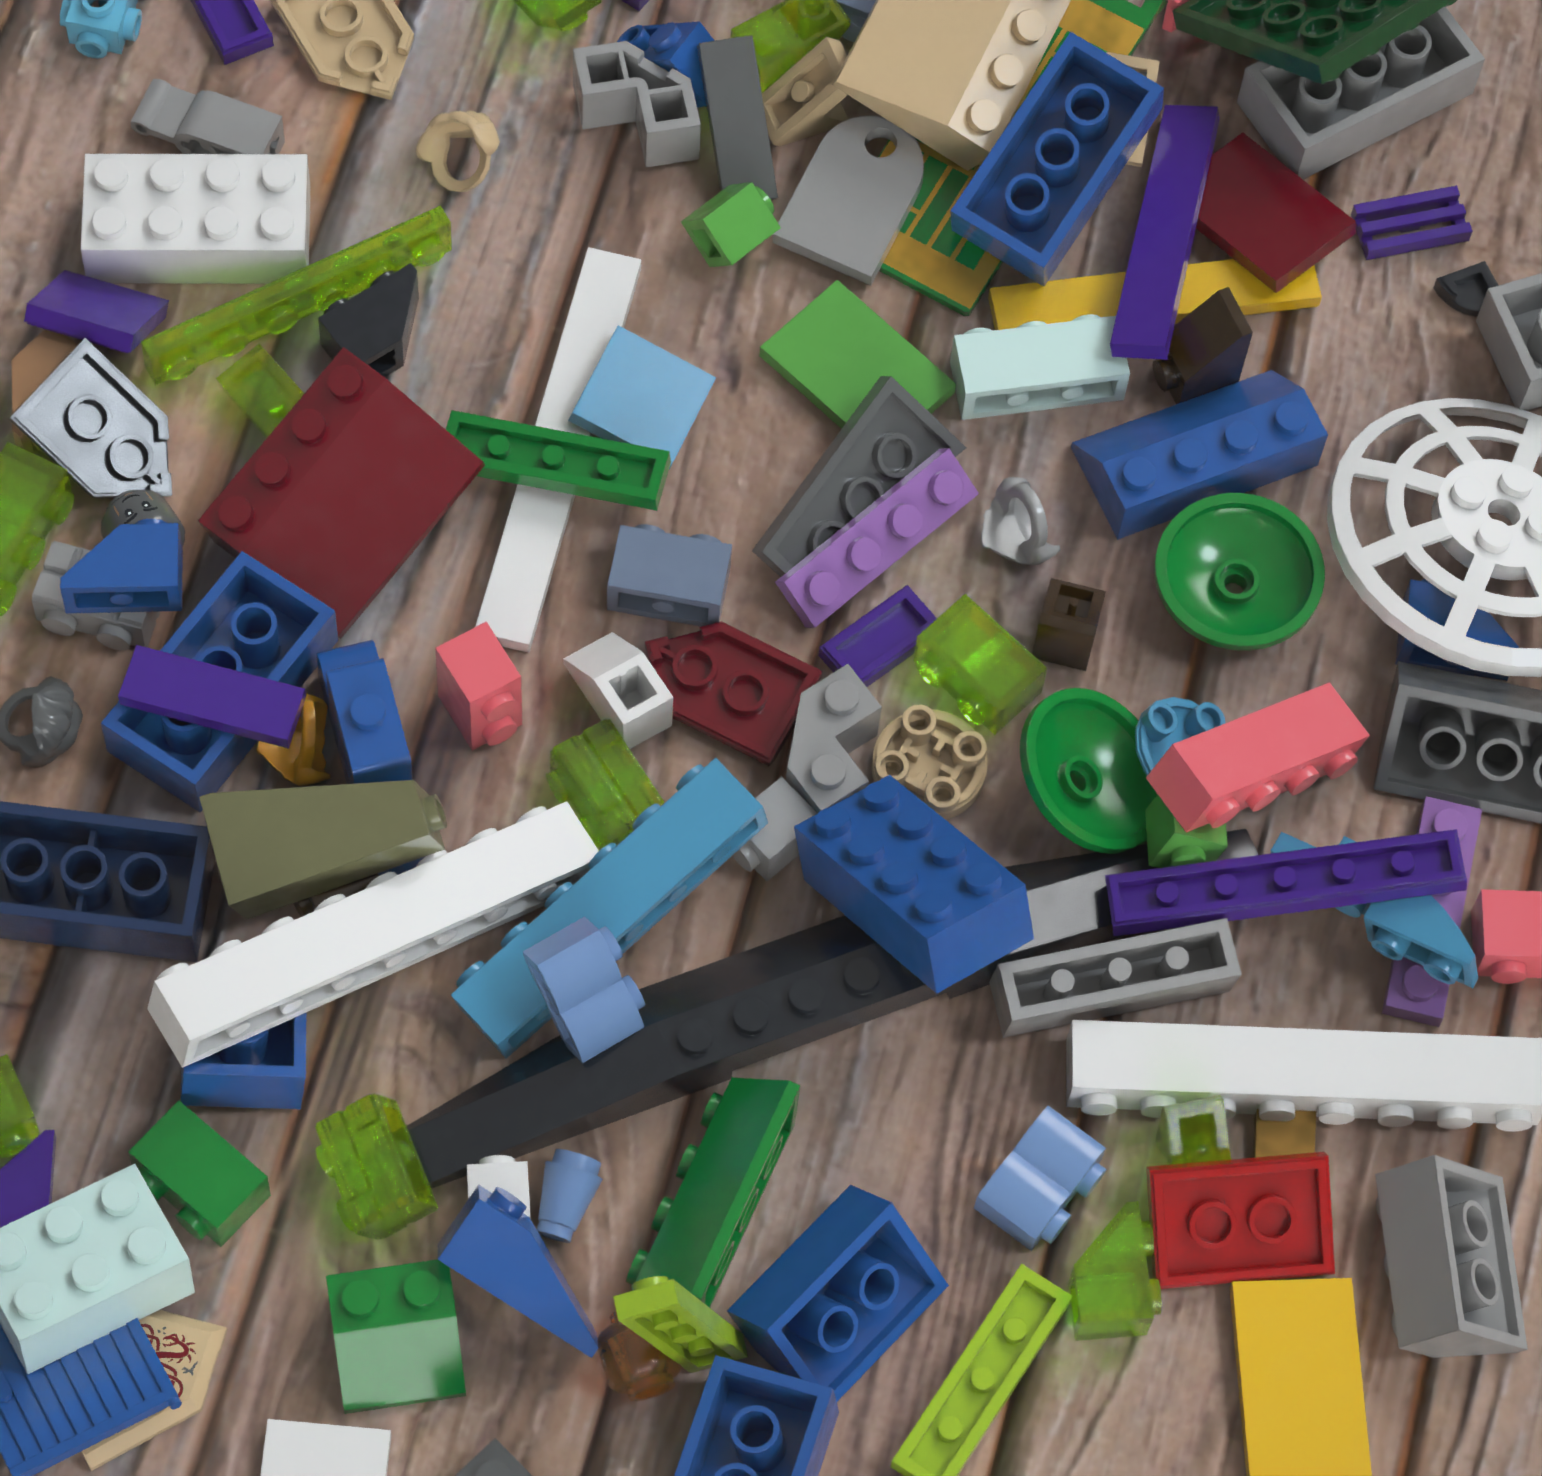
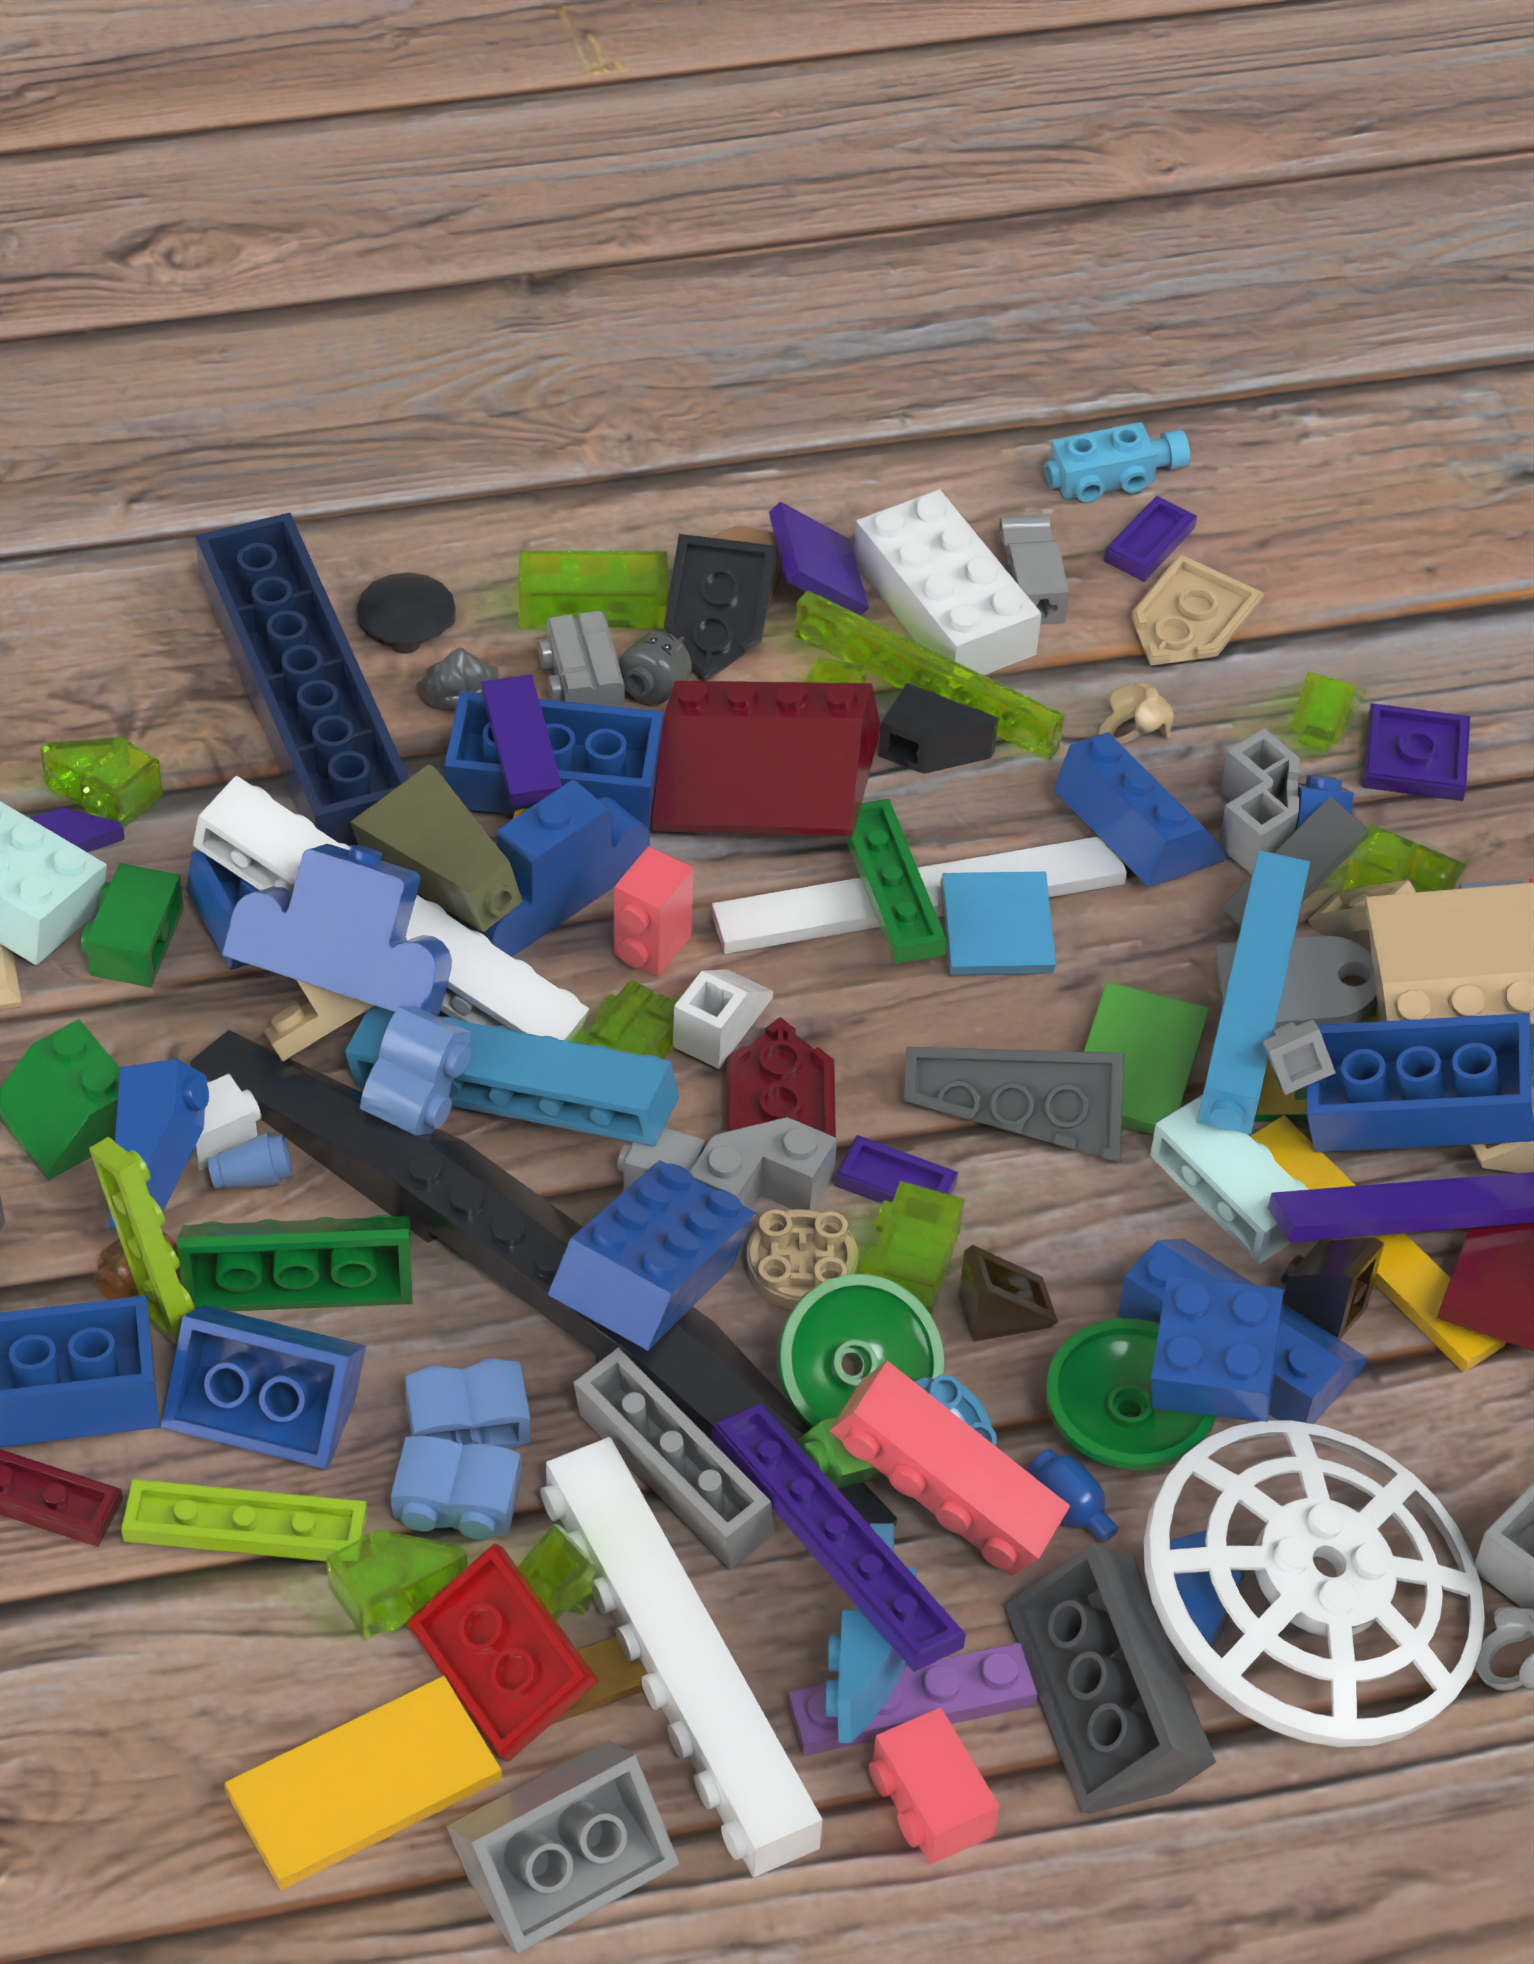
camera: 65 degrees right, 15 degrees down
(128, 571) = (598, 652): blue slope -> none
(374, 1167) = (202, 1021): clear neon green brick -> none
(395, 975) = (344, 931): none -> brick
(428, 1041) = (301, 1026): none -> tan slope
(587, 215) = (1133, 812): none -> blue slope
(669, 575) = (849, 1004): sand blue brick -> none
(731, 224) = (1201, 909): bright green brick -> none
(877, 538) = (986, 1131): medium lavender plate -> none
(879, 232) = (1253, 992): none -> dark azure brick
(957, 1129) = (470, 1404): none -> medium blue brick
(993, 238) = (1298, 1055): none -> light grey tile
(1017, 524) = (1069, 1223): light grey piece -> none
(1264, 476) = (1217, 1348): none -> blue brick
(1298, 671) = (1079, 1489): none -> blue plant

